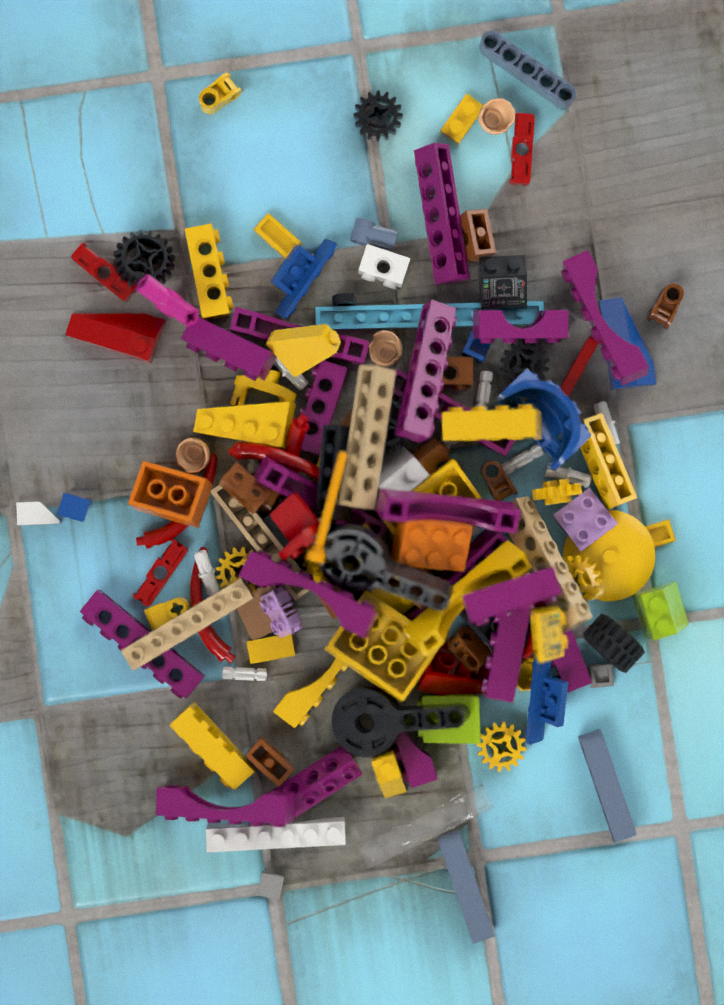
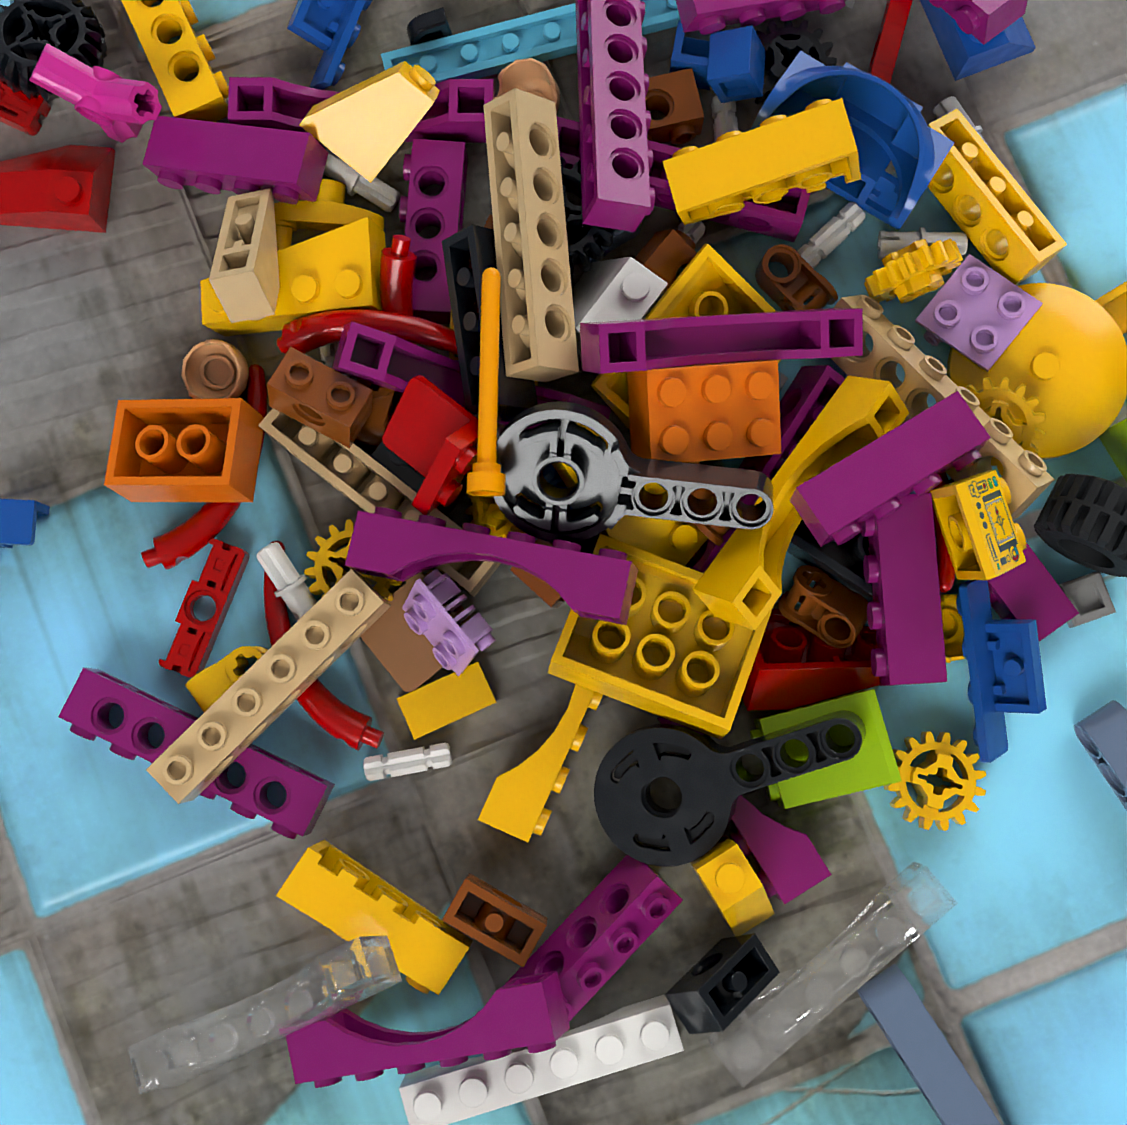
camera: 10 degrees left, 5 degrees down
(133, 783) = (316, 991): none -> clear arch
(225, 407) = (247, 258): none -> tan slope
(371, 818) = (722, 984): none -> black brick
(495, 362) = (736, 64): none -> blue panel

